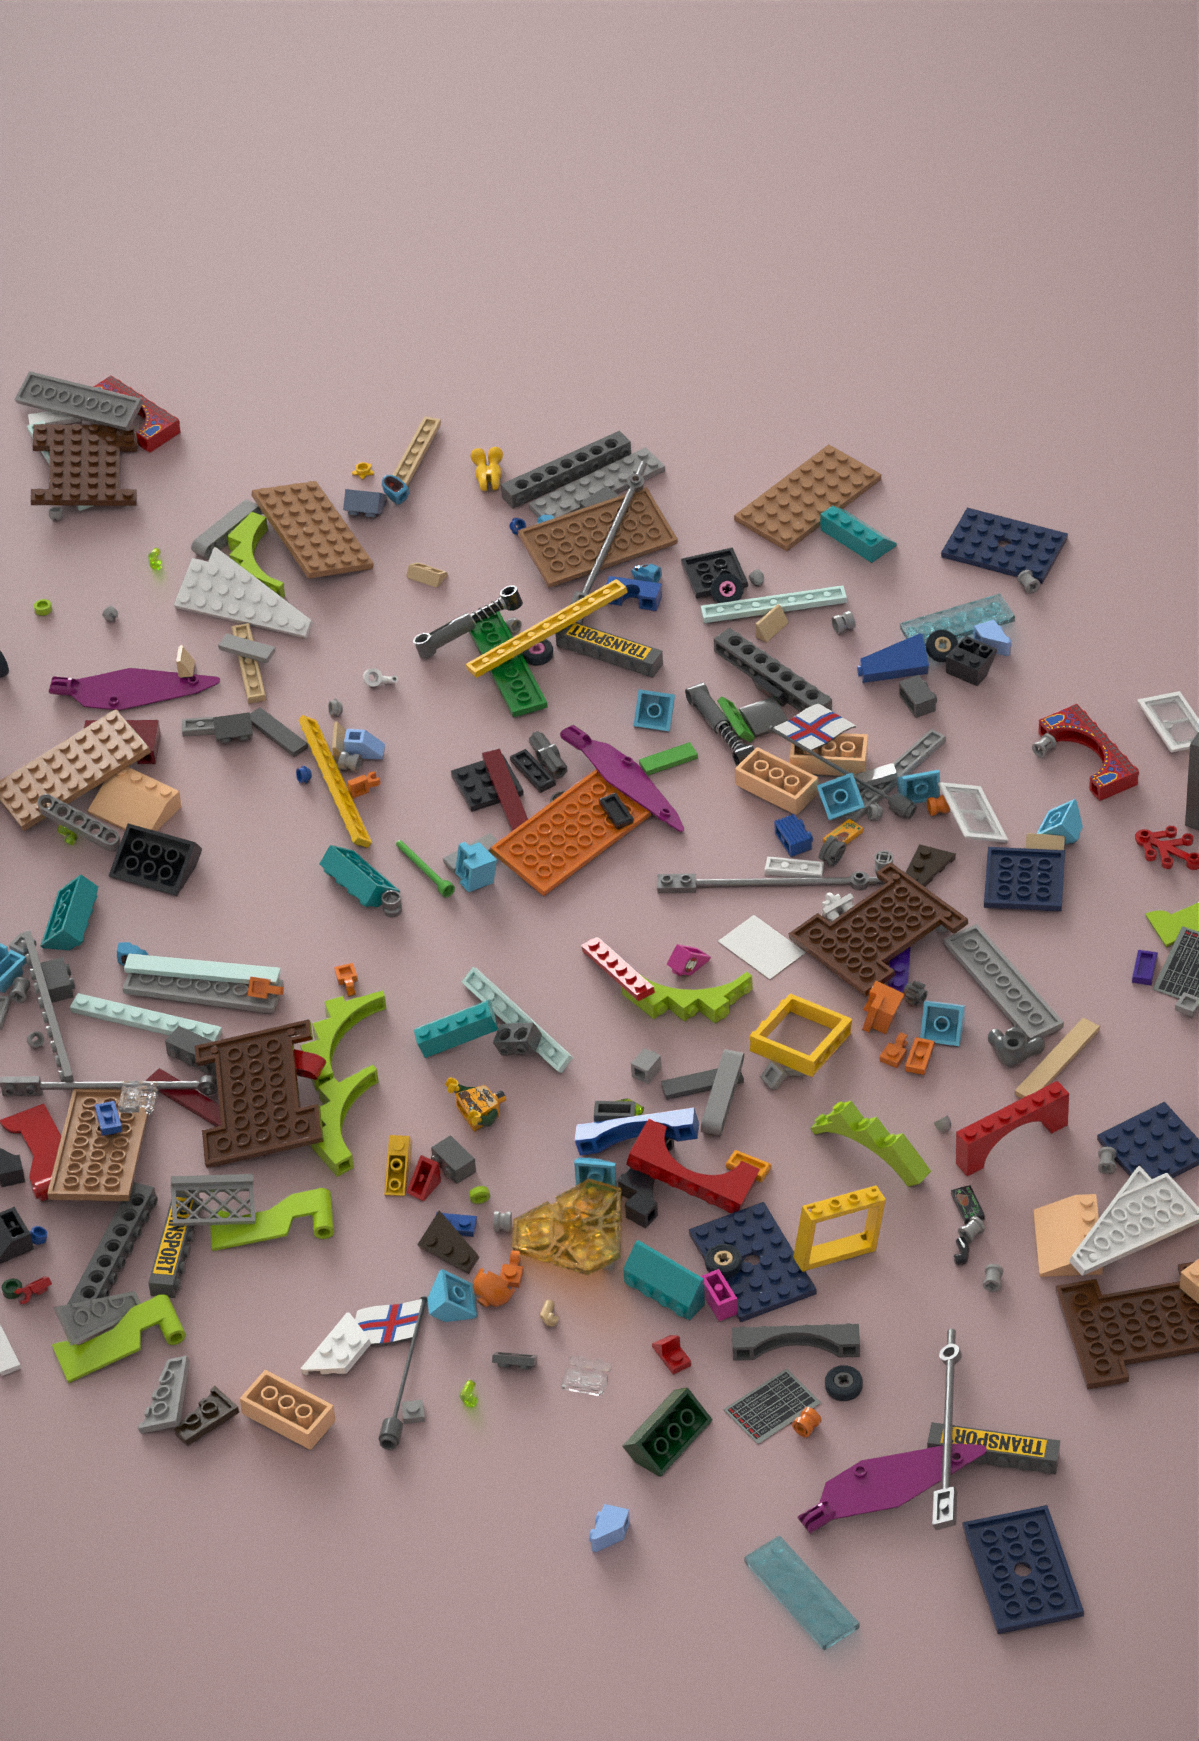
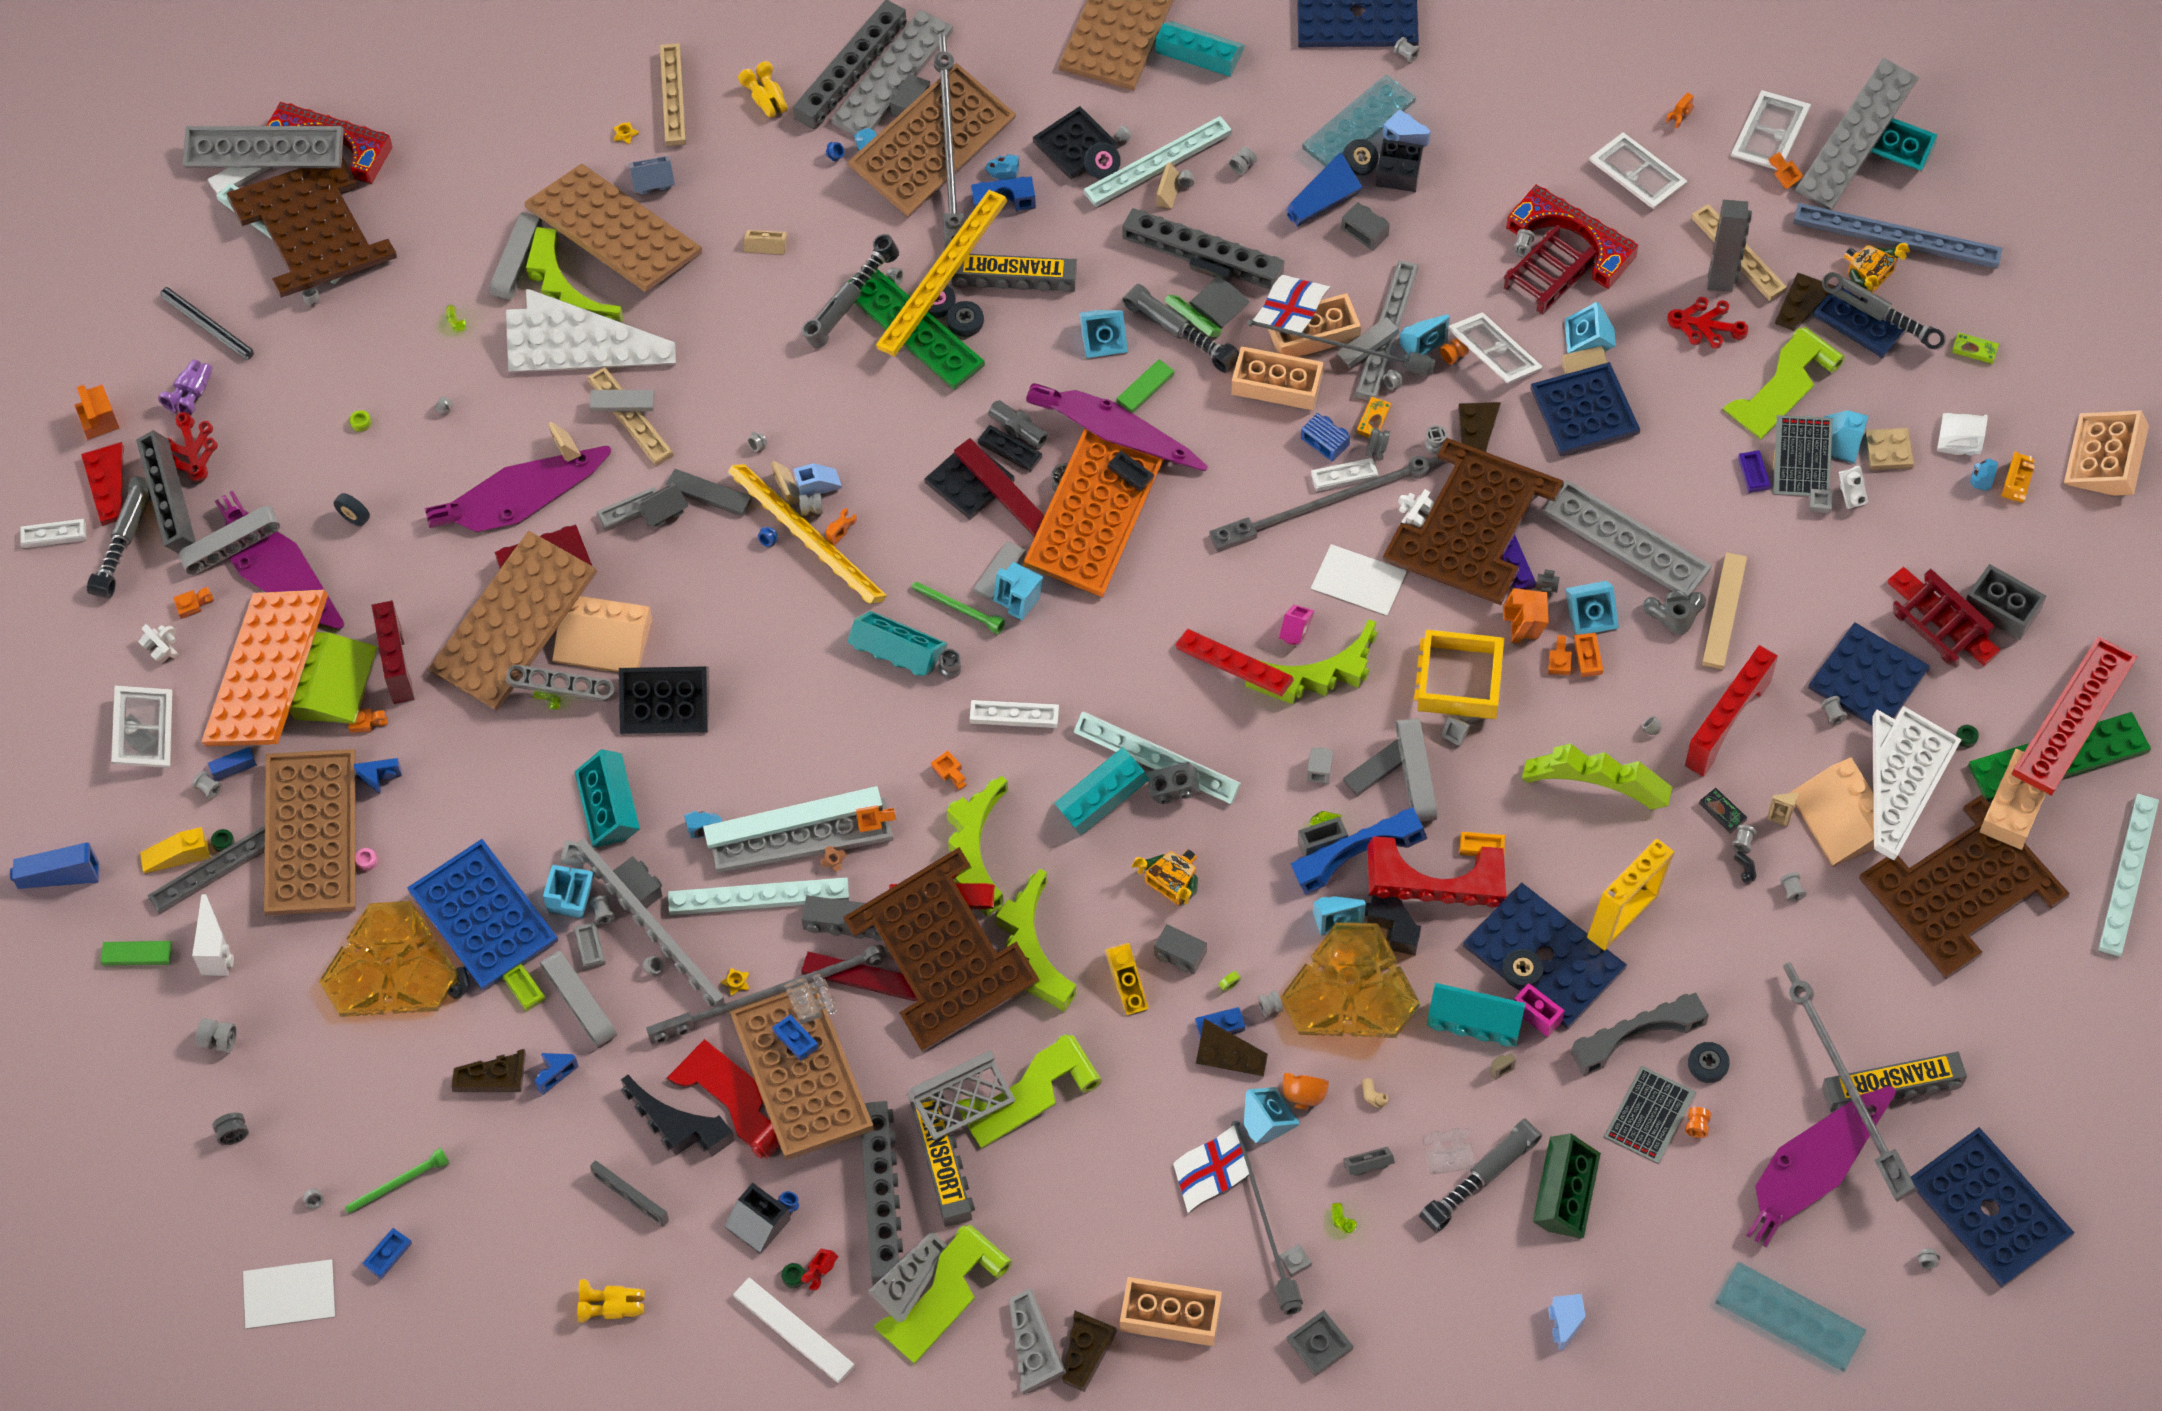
camera: 25 degrees left, 15 degrees up
(89, 1075) = (736, 975): none -> yellow plate
(218, 1016) = (831, 852): none -> nougat plate
(339, 1349) = (1182, 1216): white wing -> none
(378, 678) = (784, 390): white plate -> none
(395, 489) = (677, 147): dark azure rock -> none
(396, 1475) = (1319, 1343): none -> dark grey plate
(422, 954) = (1014, 714): none -> white plate
(425, 1178) = (1163, 984): red slope -> none
(513, 1272) = (1309, 1060): orange plate -> none
(551, 670) = (960, 311): none -> black bush
(650, 1384) = (1521, 1139): none -> piece
(666, 1327) = (1502, 1065): none -> dark tan plate
(672, 1354) = (1518, 1091): red slope -> none
(789, 622) = (1186, 179): none -> light grey hinge
(840, 796) = (1355, 377): medium azure slope -> none
(945, 1589) = (1928, 1258): none -> light grey plate
(1016, 1214) = (1782, 808): none -> tan slope
(1054, 784) = (1558, 285): none -> dark red fence

